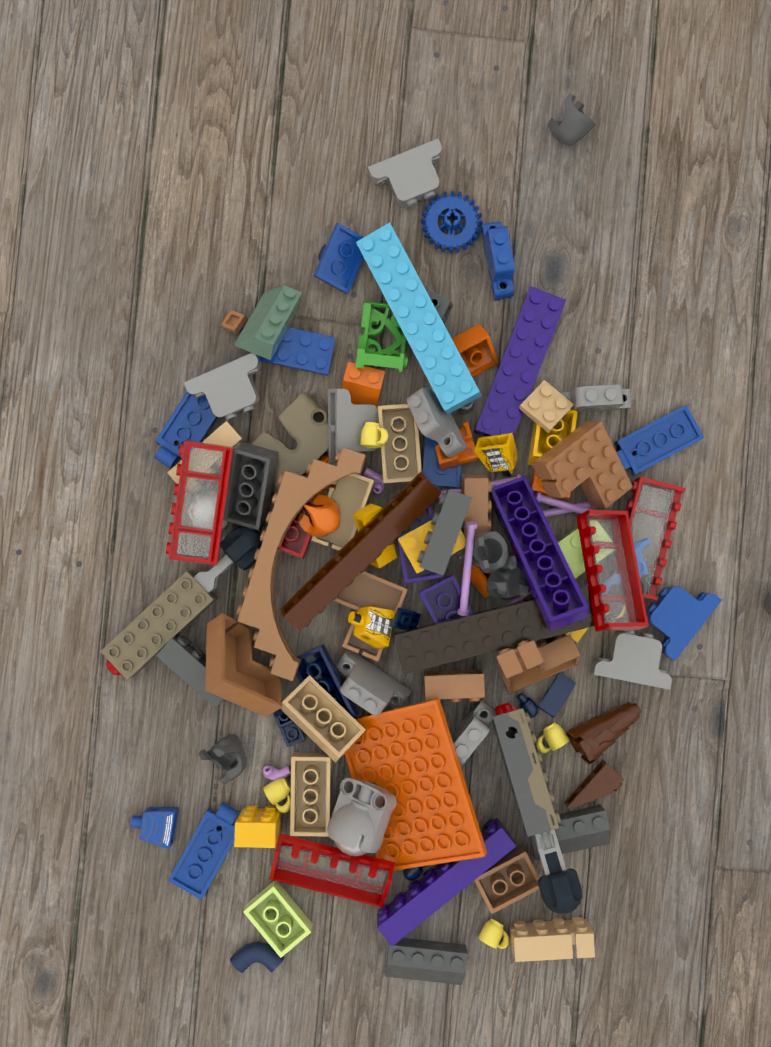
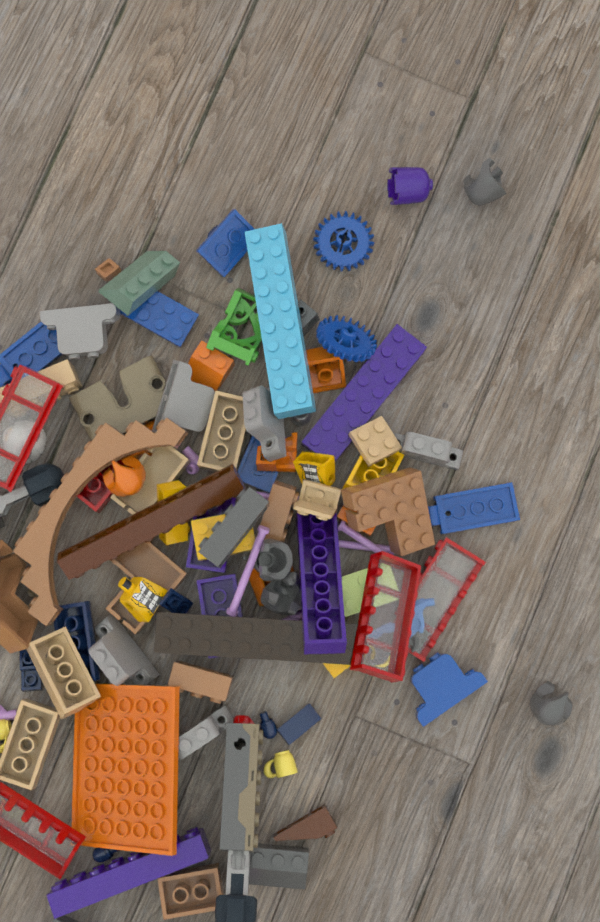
camera: 15 degrees right, 5 degrees down
(250, 485) = (69, 426): dark grey brick -> none
(360, 817) = (67, 780): light grey piece -> none
(373, 435) = (201, 416): light yellow piece -> none
(410, 174) = (318, 185): light grey brick -> none
(486, 317) = (346, 339): none -> blue gear
(497, 146) = (408, 185): none -> dark purple cylinder
(498, 258) = (375, 290): blue brick -> none
(511, 480) = (318, 500): none -> tan bracket
(535, 663) = (274, 685): medium nougat piece -> none
(601, 731) = (330, 773): reddish brown cone -> none
(633, 660) = (384, 714): light grey brick -> none

